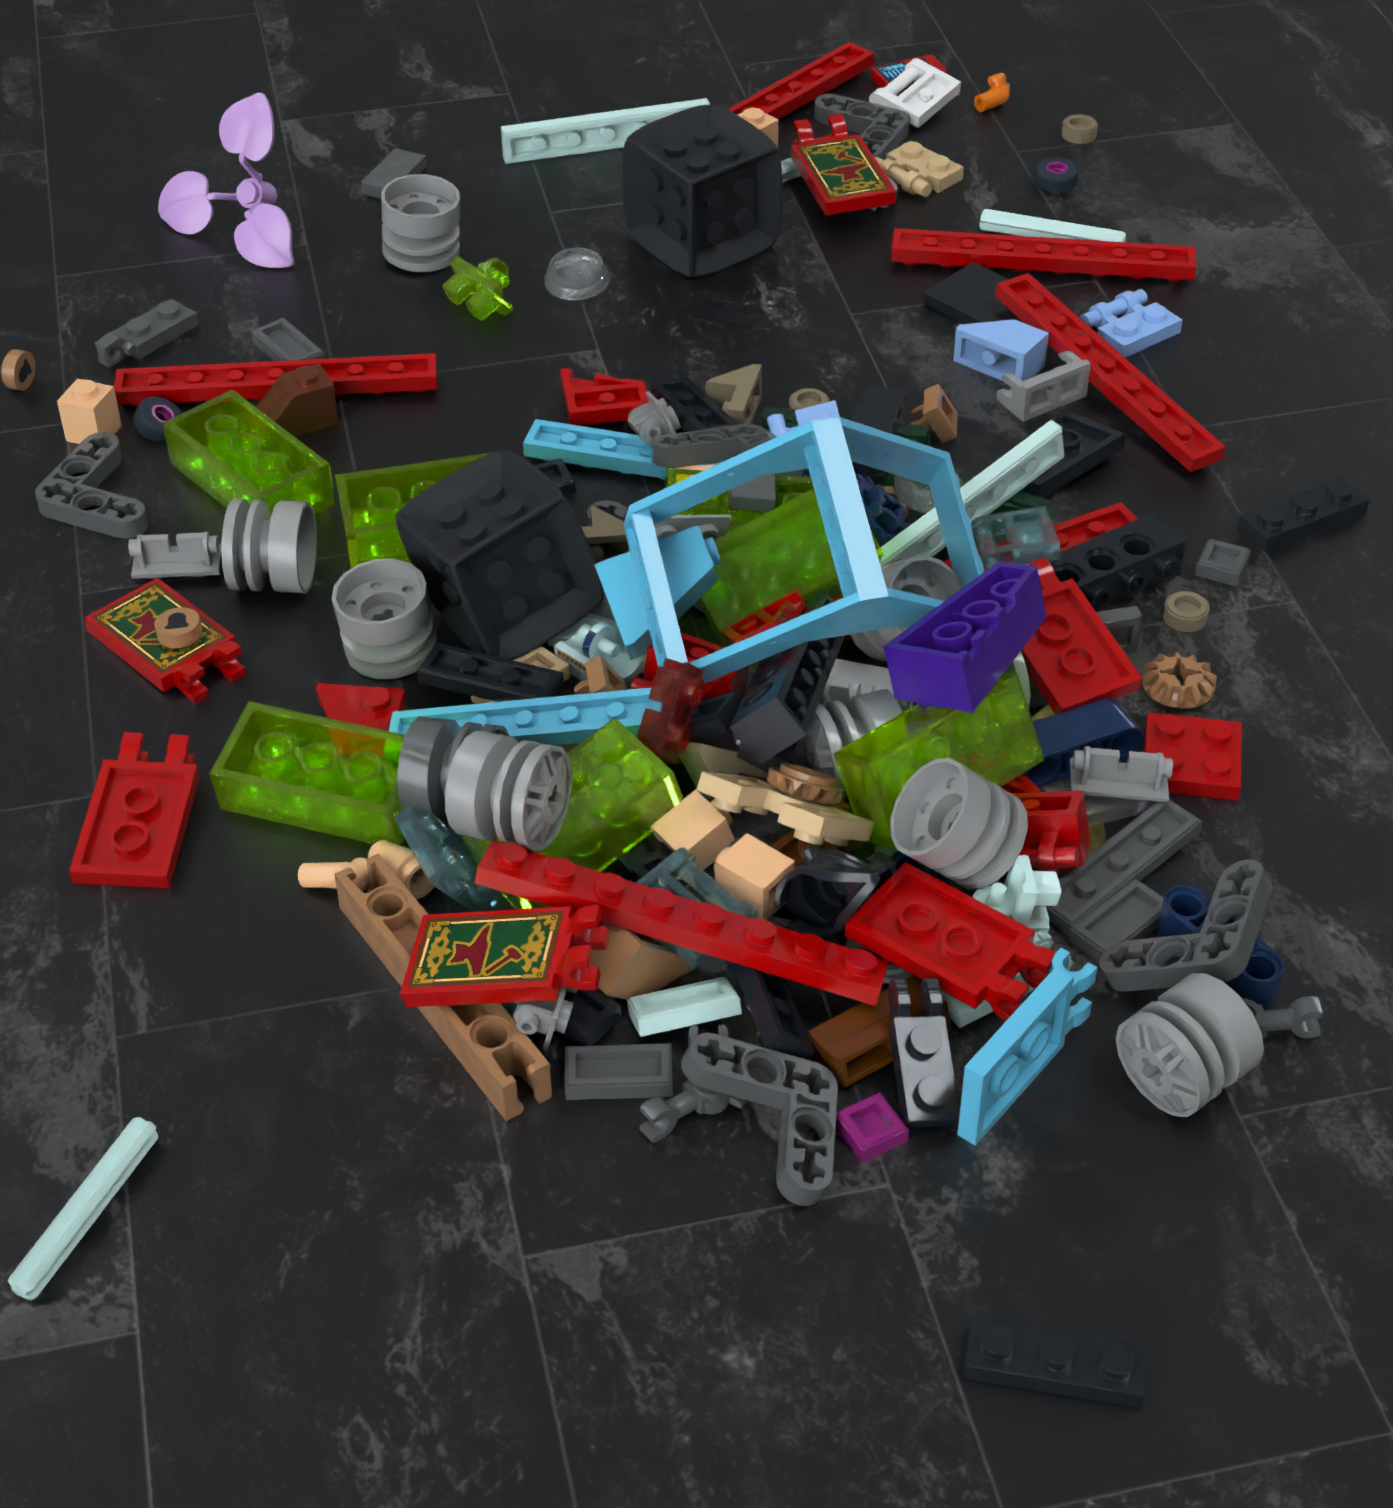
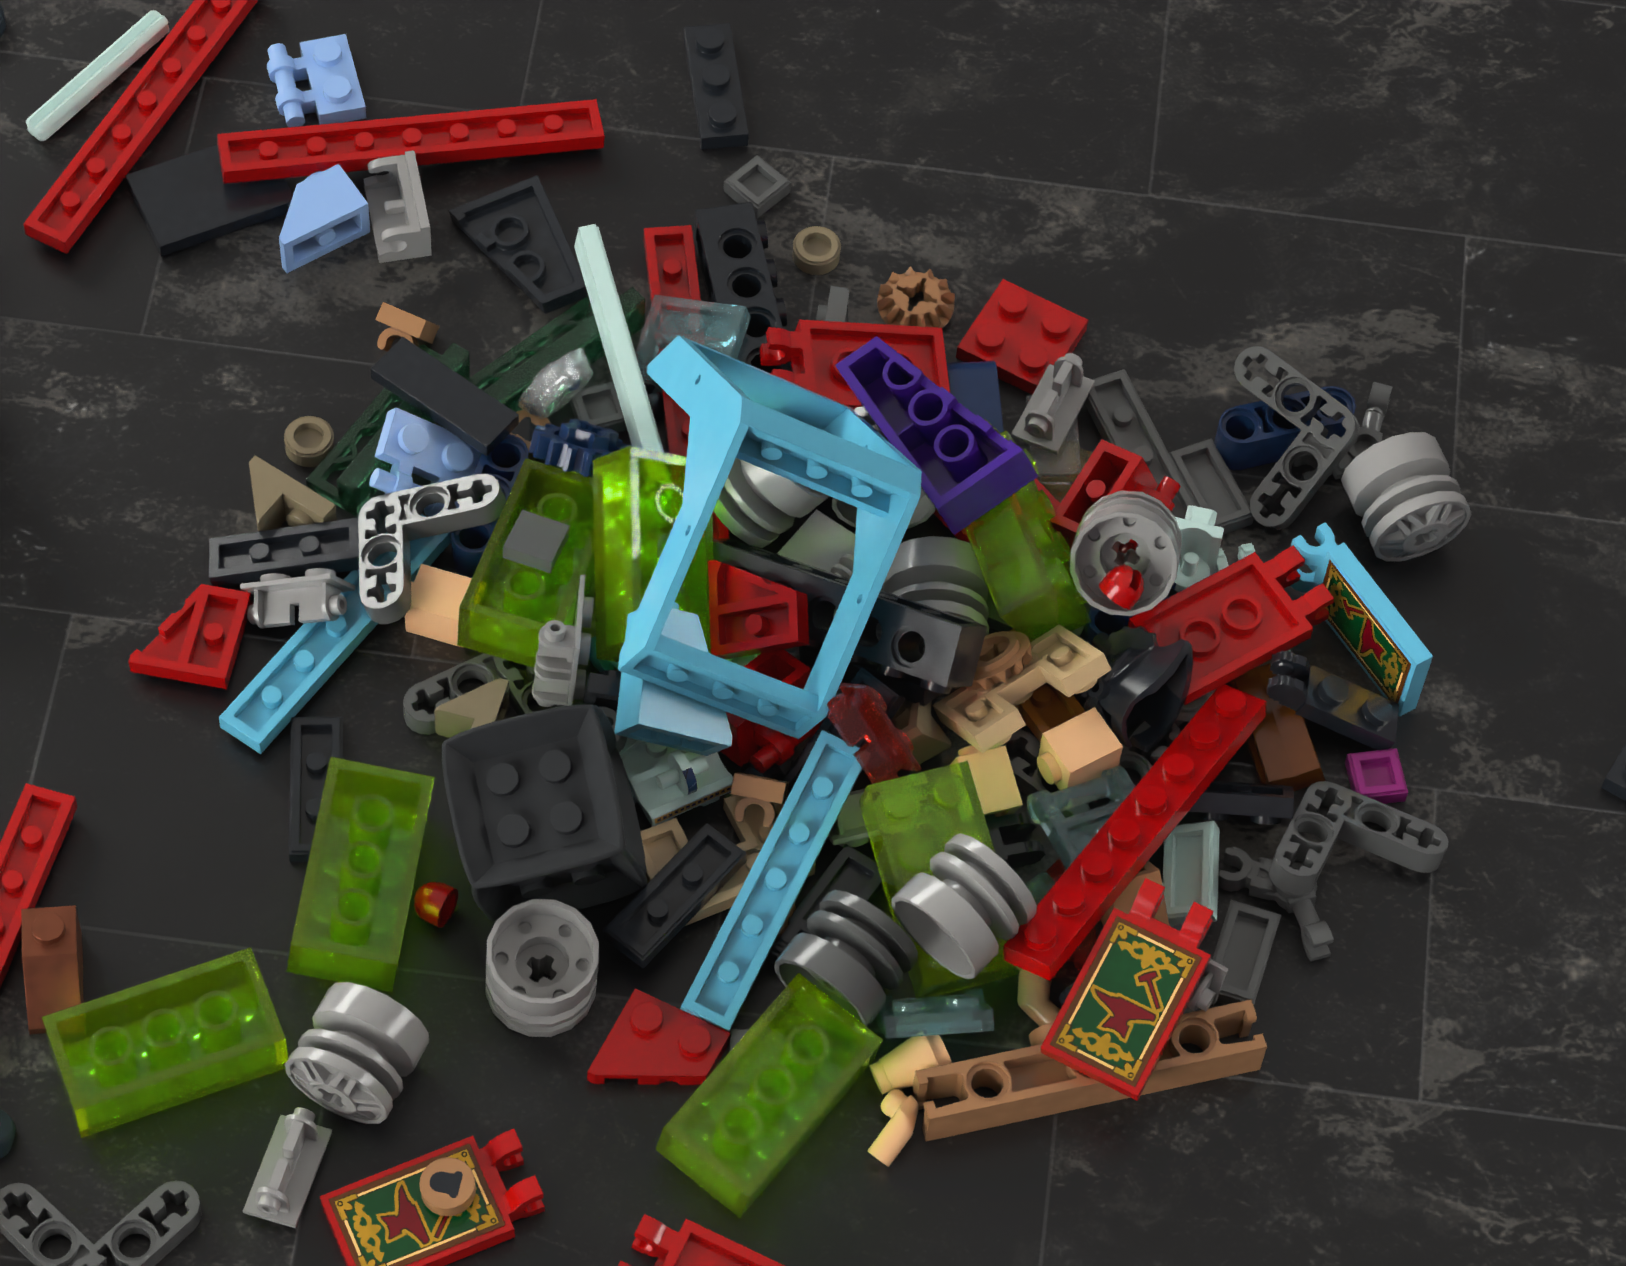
camera: 75 degrees left, 15 degrees up
(903, 826) = (1123, 586): none -> red hinge

